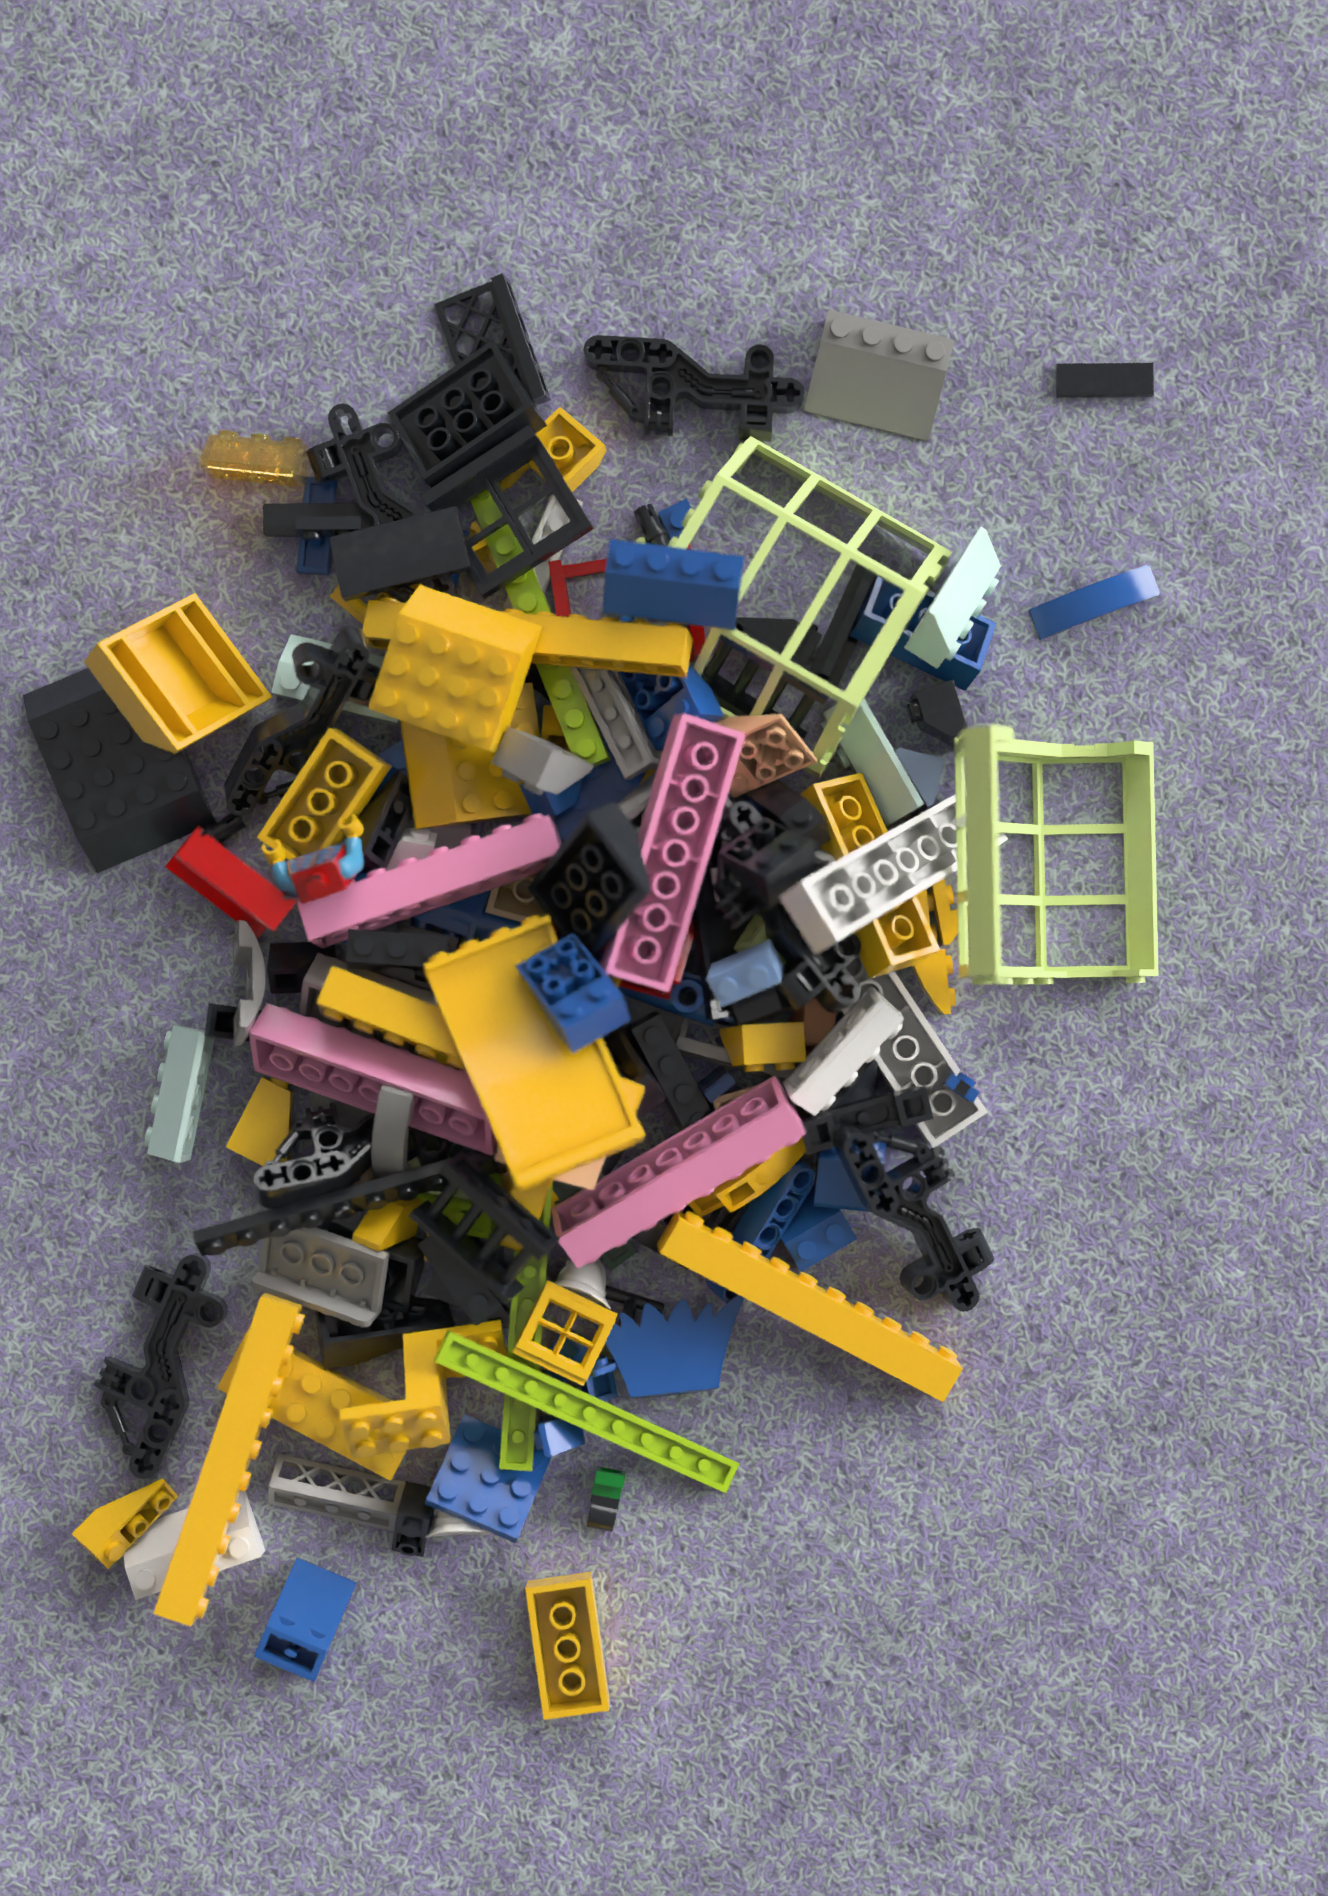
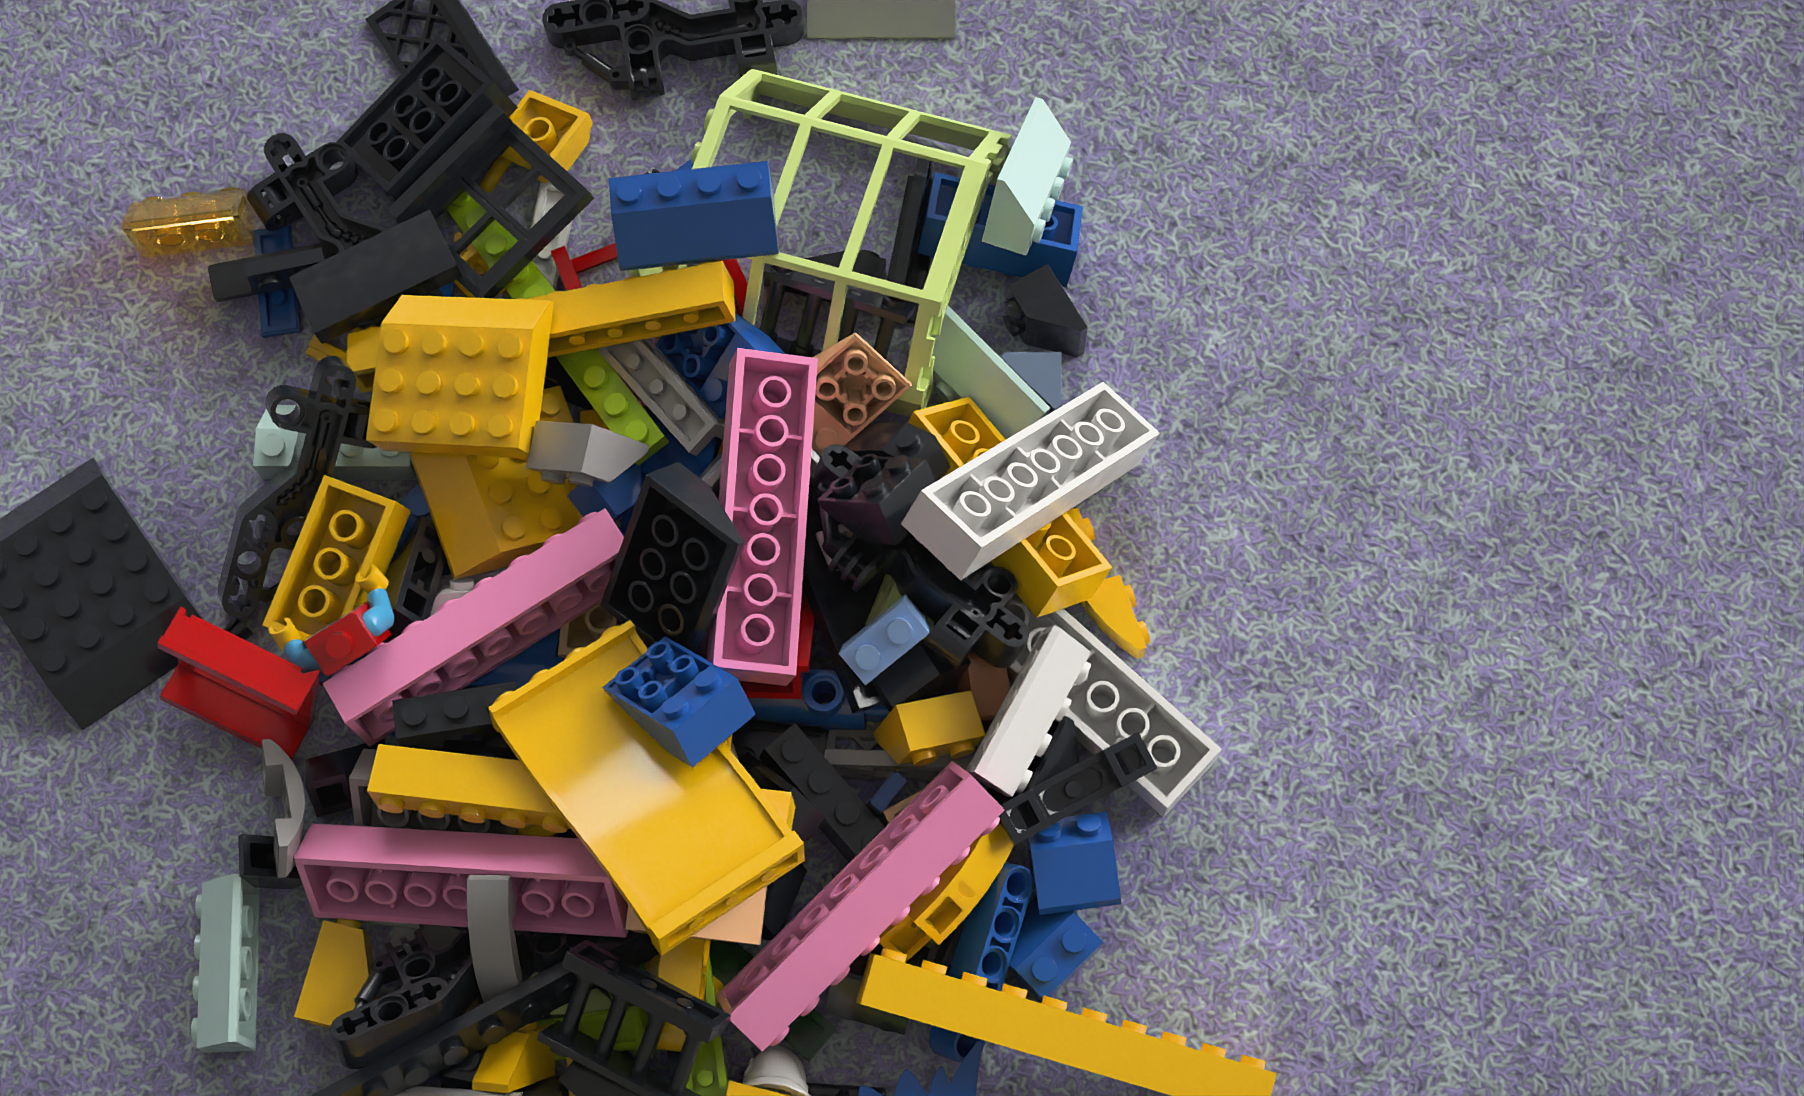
camera: 10 degrees left, 15 degrees down
(176, 675) = (131, 464): yellow slope -> none
(944, 1258) = (1214, 939): black beam -> none
(946, 919) = (1113, 543): yellow slope -> none
(962, 1086) = (1181, 721): blue plate -> none
(977, 814) = (1111, 335): yellowish green window -> none
(1094, 601) = (1185, 160): blue slope -> none

